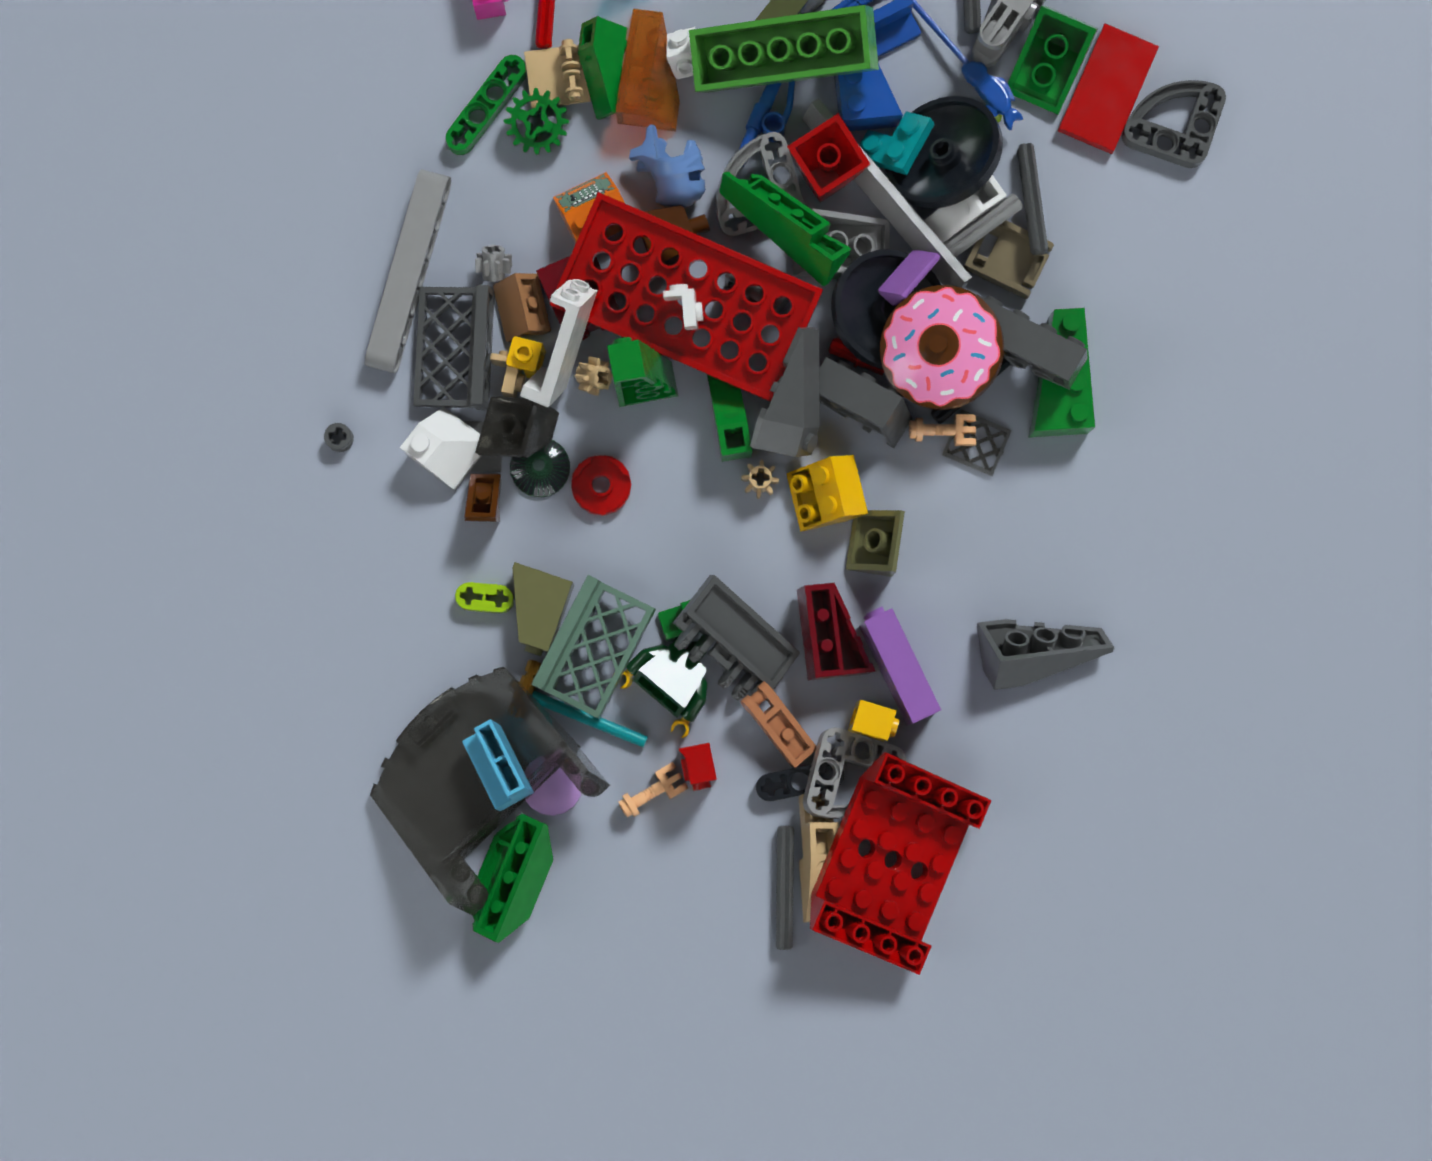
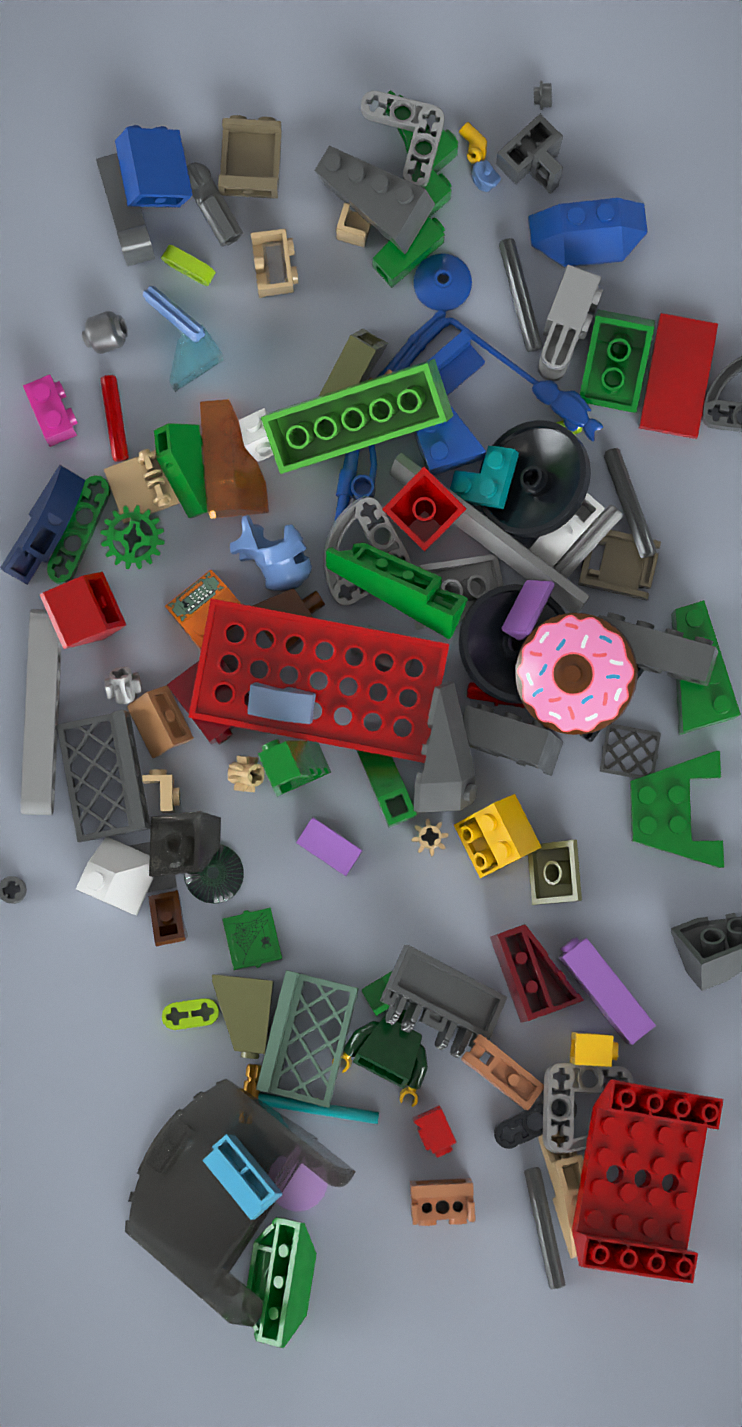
camera: 10 degrees left, 0 degrees up
(454, 91) = (46, 526): none -> dark blue slope
(471, 179) = (83, 610): none -> red slope
(526, 355) = (176, 770): yellow bracket -> none
(550, 383) = (204, 792): white panel -> none
(562, 539) = (252, 938): none -> green piece
(588, 472) = (277, 895): red tile -> none
(630, 804) = (405, 1155): light nougat hinge -> none
(643, 309) = (281, 704): none -> sand blue slope
(659, 466) = (329, 846): none -> medium lavender slope
(687, 825) = (443, 1189): none -> nougat piece
(691, 310) = (328, 694): white bracket -> none
(918, 429) = (571, 753): light nougat hinge -> none
(996, 507) = (664, 810): none -> green wing

